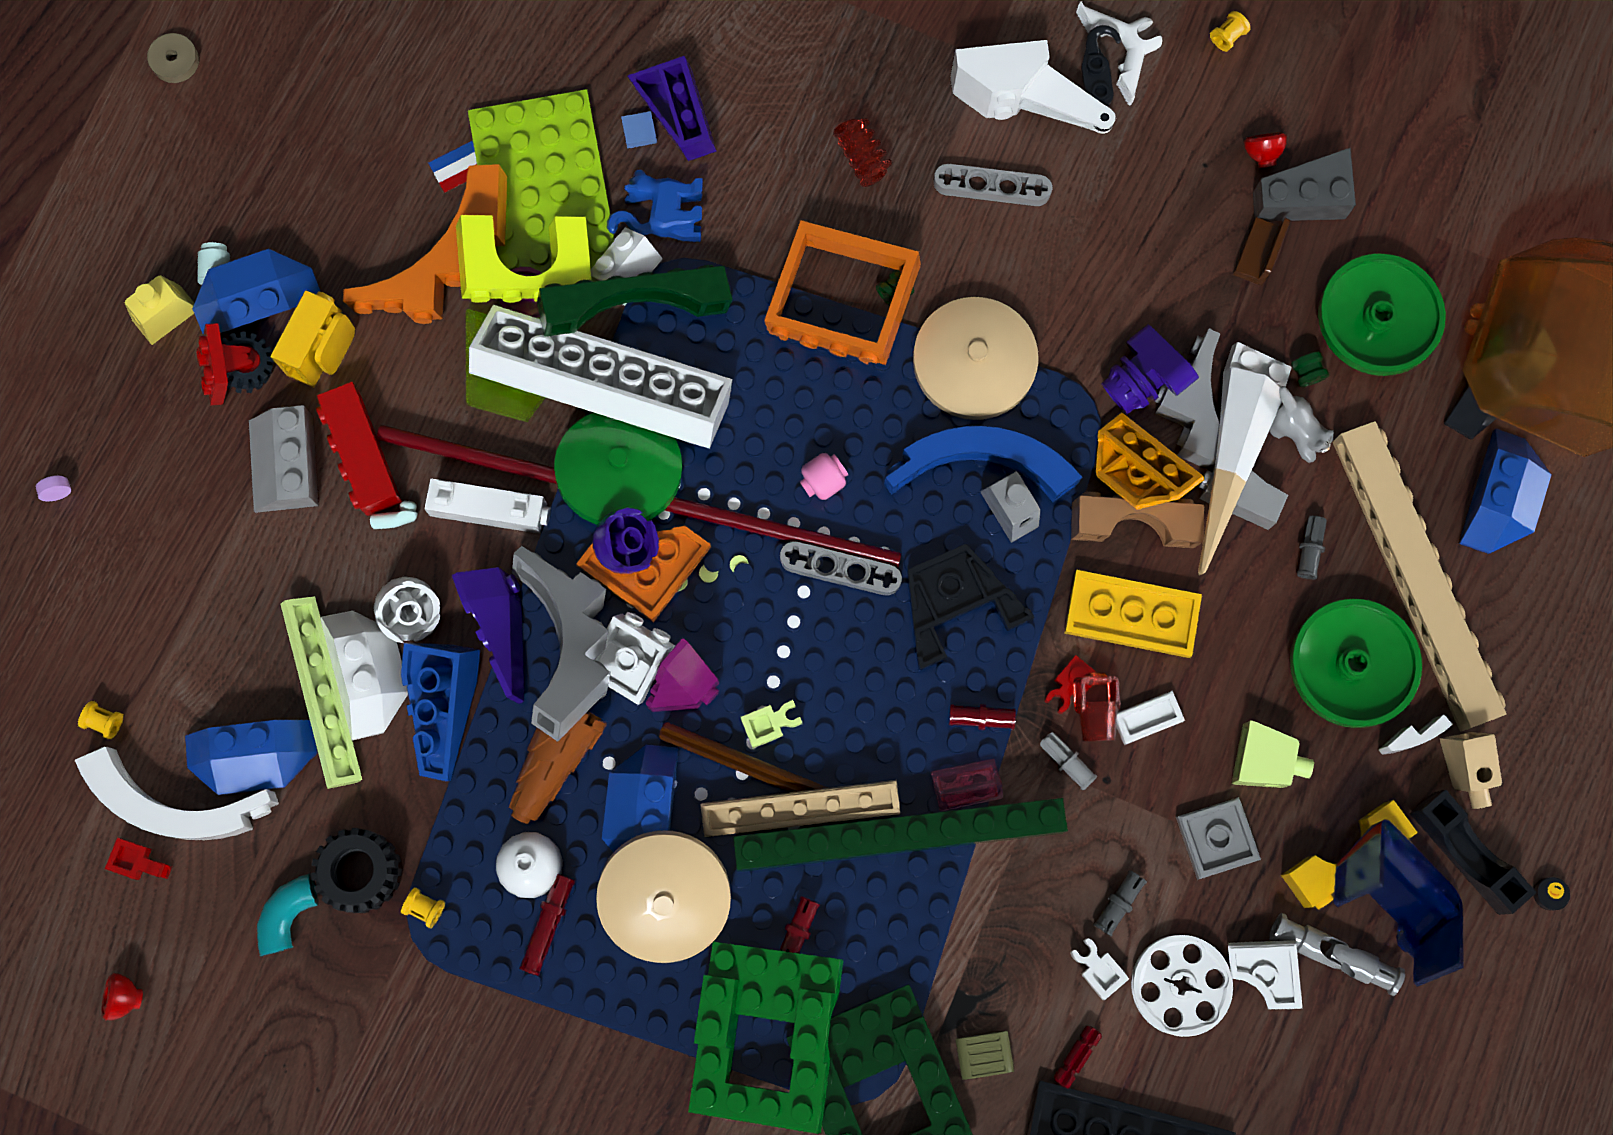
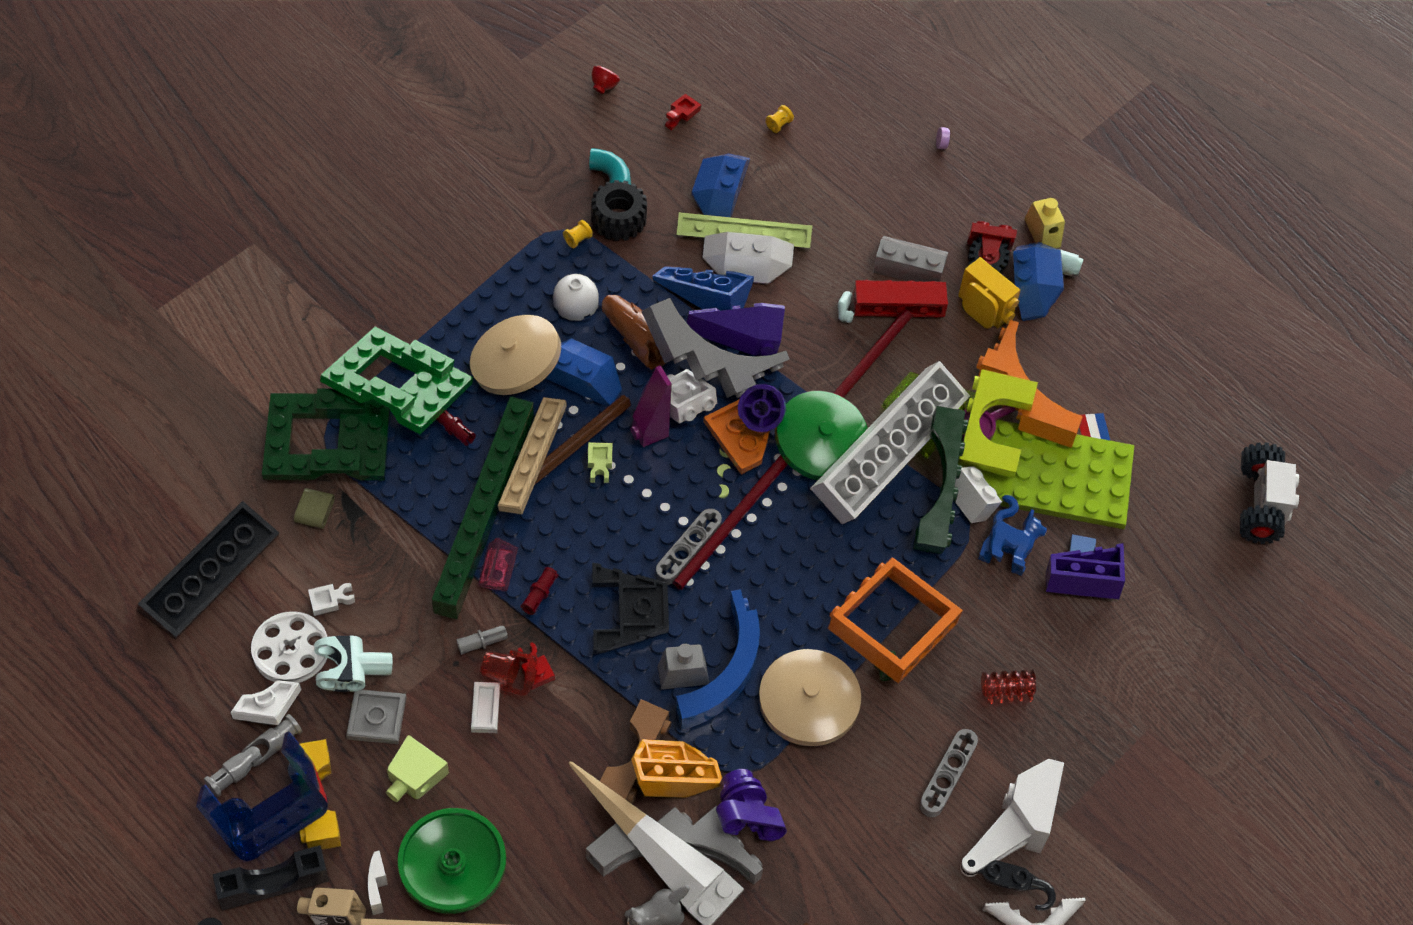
camera: 110 degrees right, 20 degrees down
(119, 793) = (710, 122): white arch -> none
(167, 46) = (1235, 298): dark tan piece -> none
(406, 609) = (776, 284): white cylinder -> none
(487, 506) = (829, 356): white brick -> none
(546, 926) = (540, 299): dark red pin -> none
(823, 476) = (760, 557): bright pink head -> none
(1077, 1056) = (281, 563): dark red axle -> none
(1120, 903) = (366, 630): dark grey pin -> none
(1133, 614) = (565, 726): yellow plate -> none
(1178, 893) = (351, 662): none -> light aqua connector
(1312, 547) = (556, 878): dark grey axle -> none

